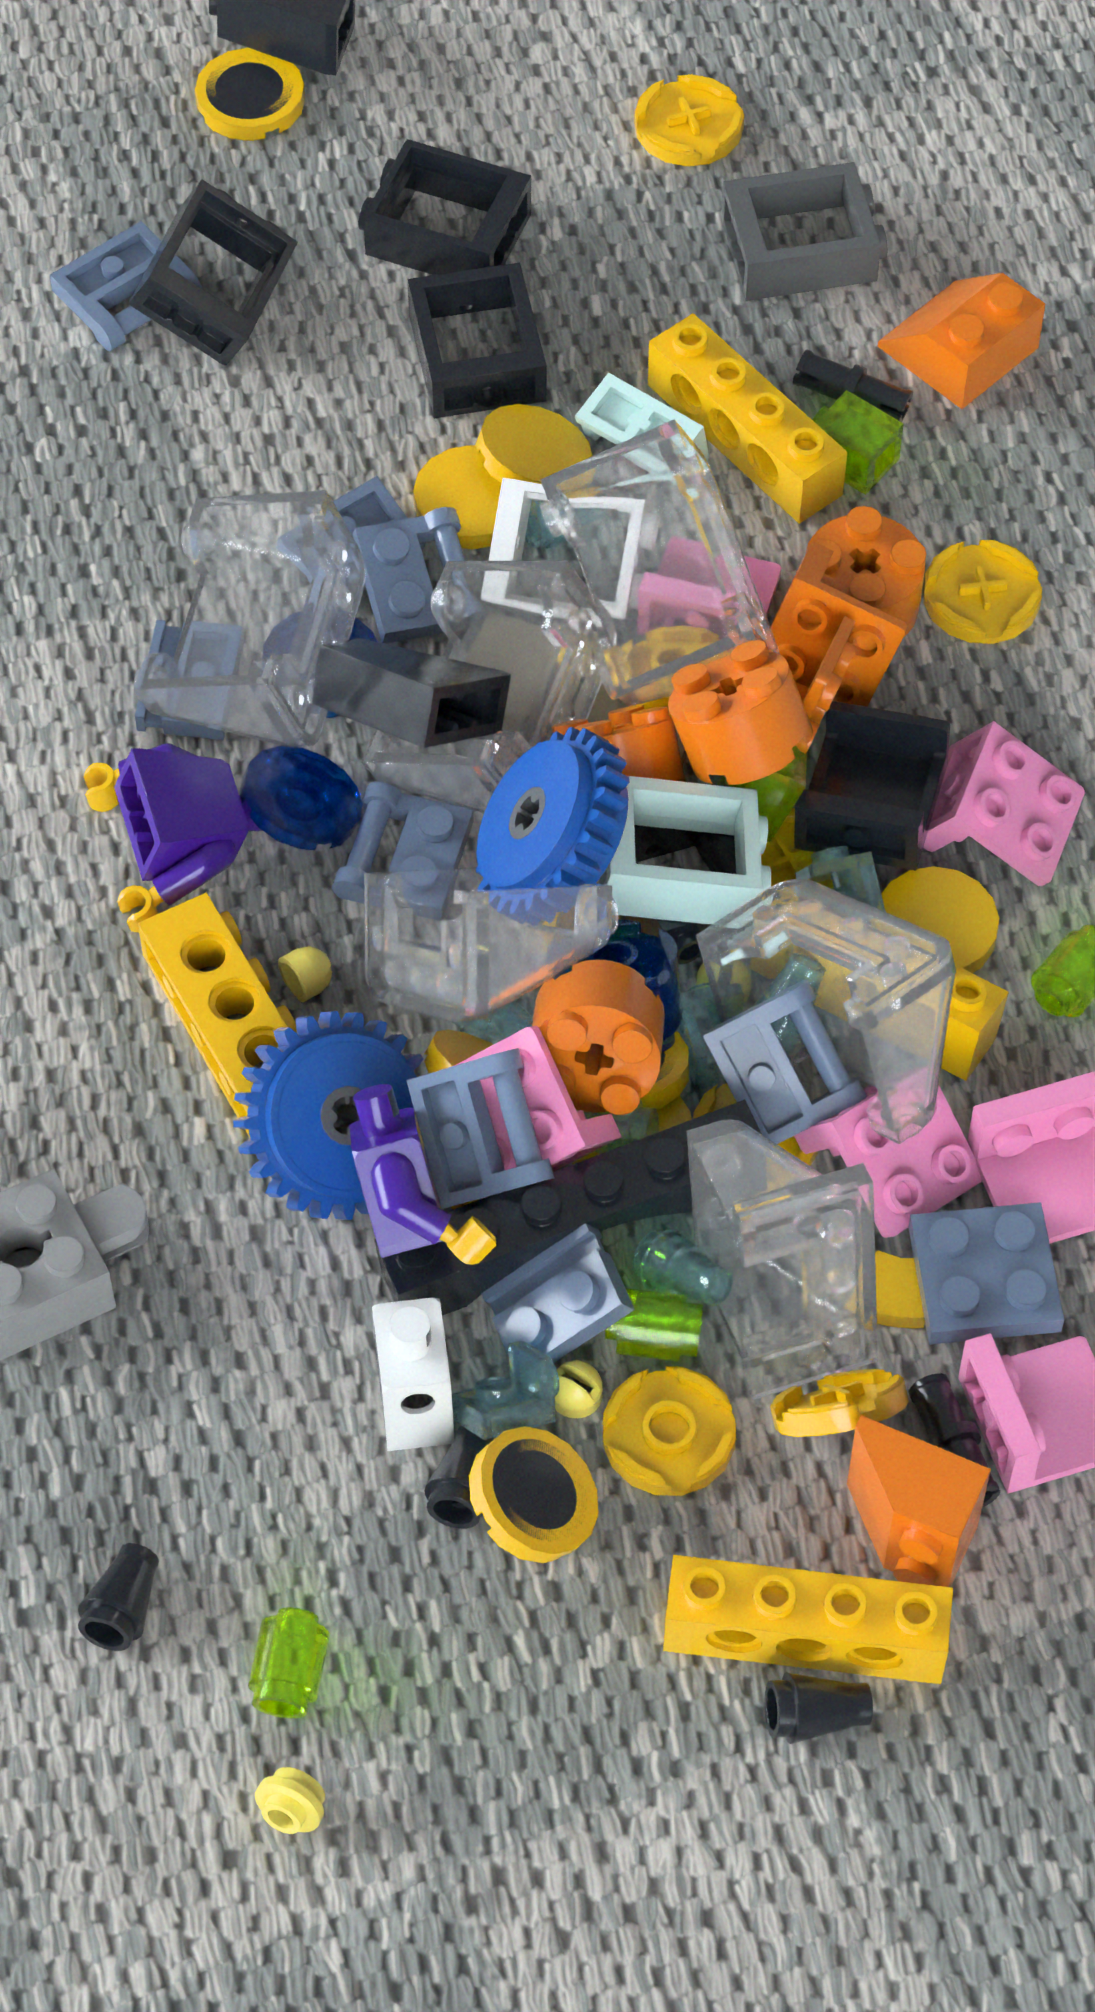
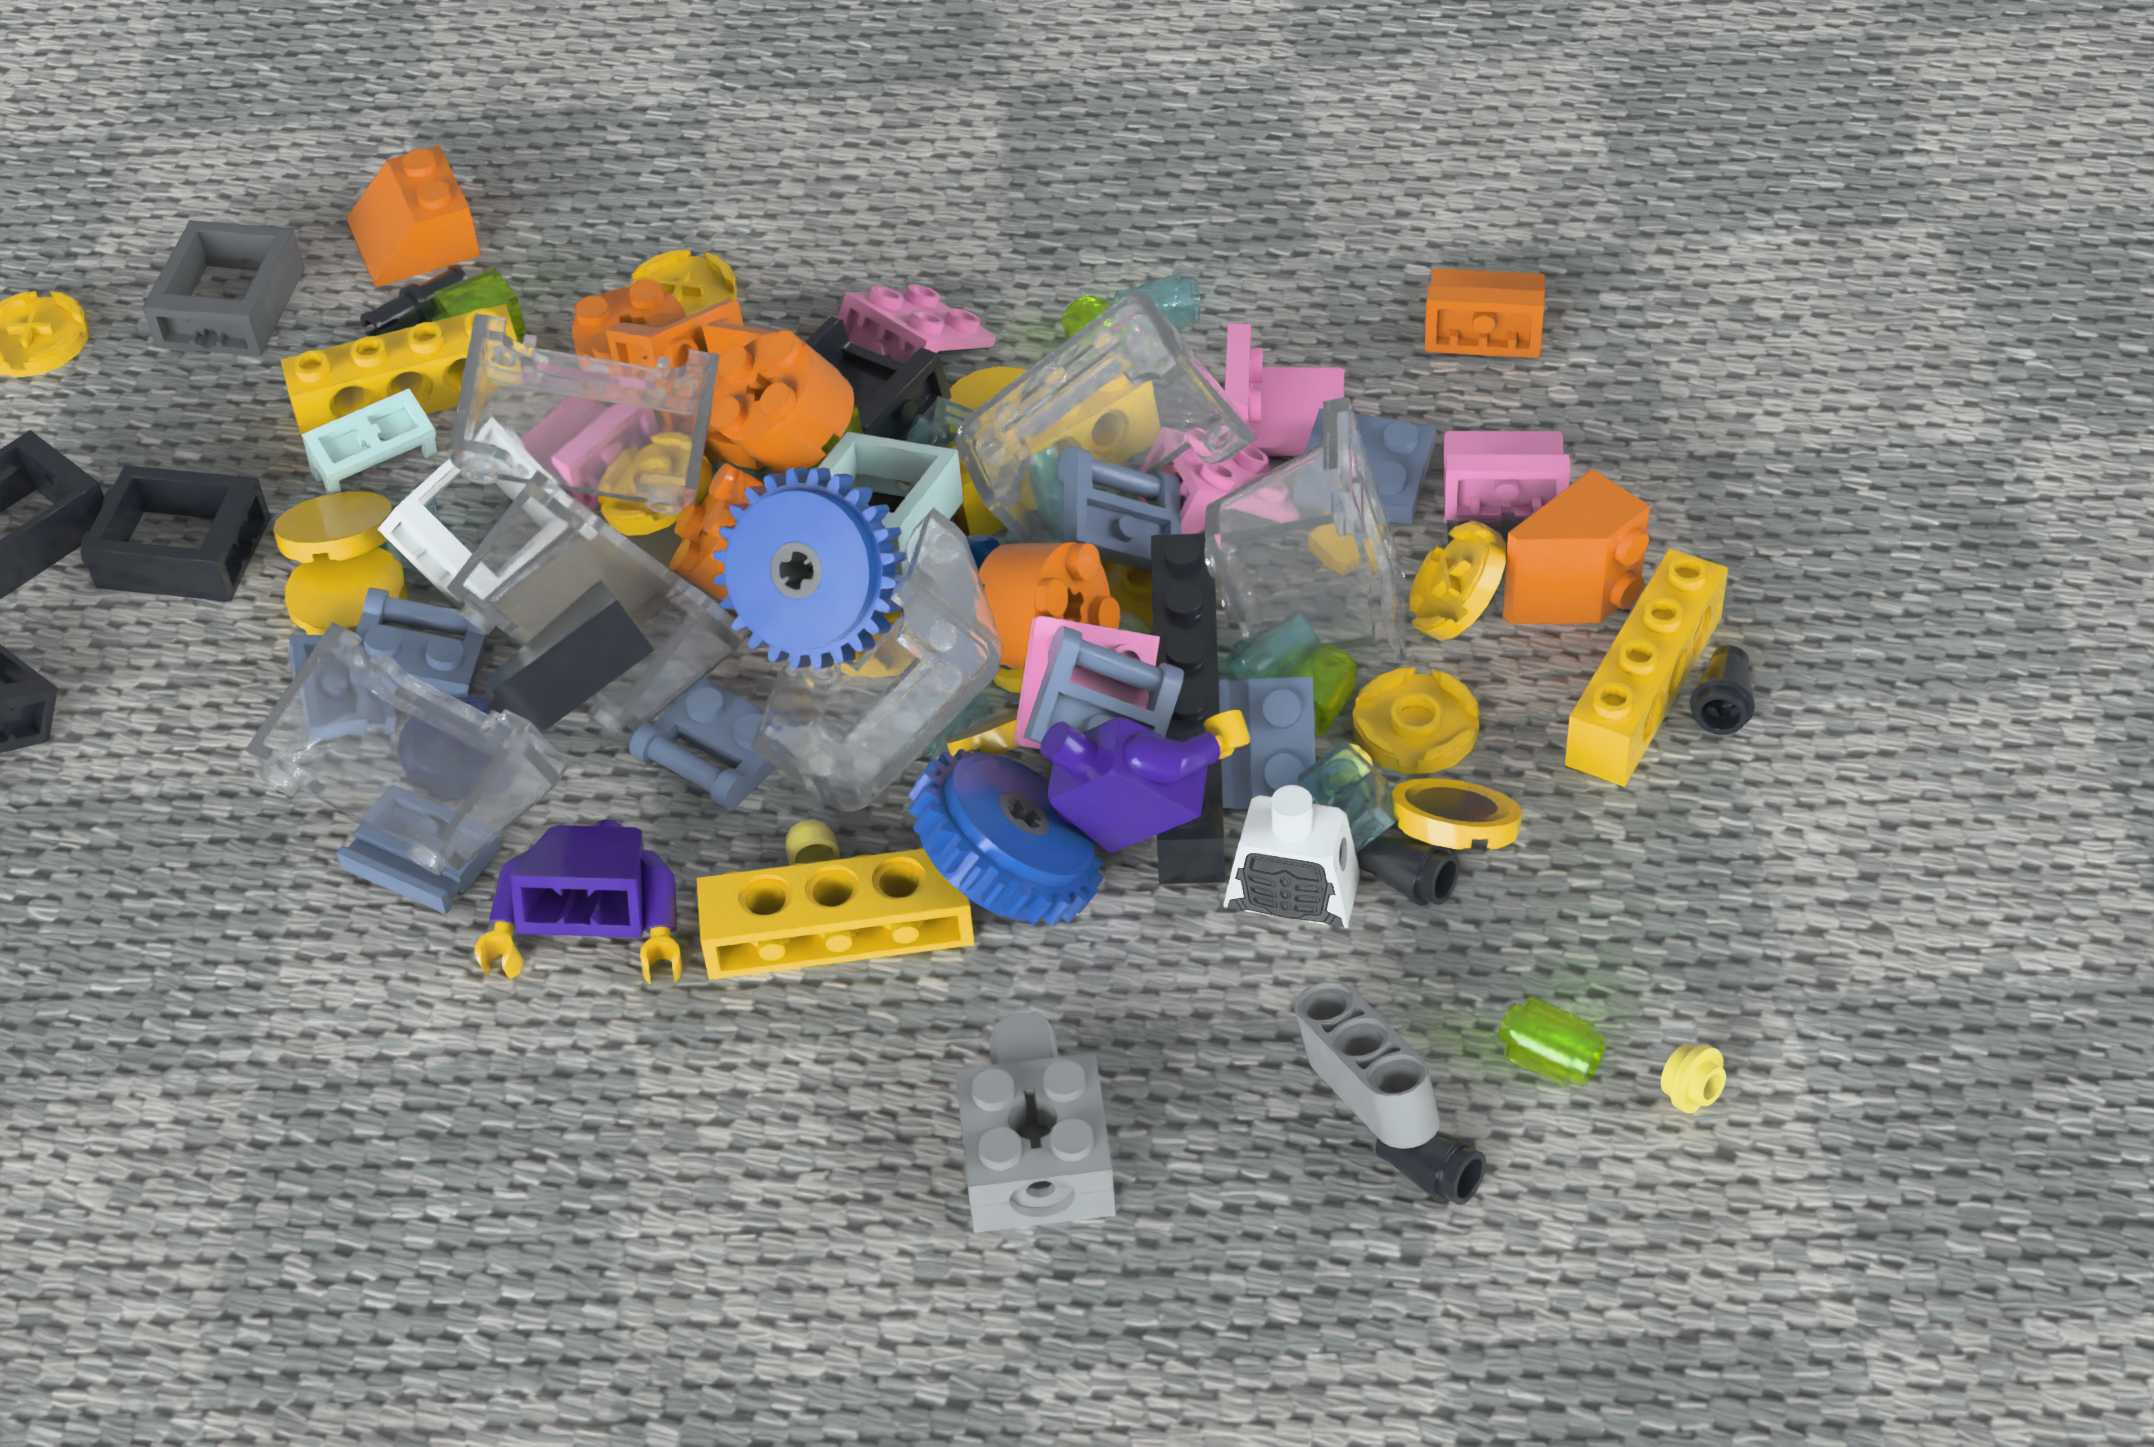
camera: 65 degrees left, 10 degrees down
(186, 1503) = (1367, 1064): none -> light grey beam
(301, 797) = (619, 788): clear blue tile -> none

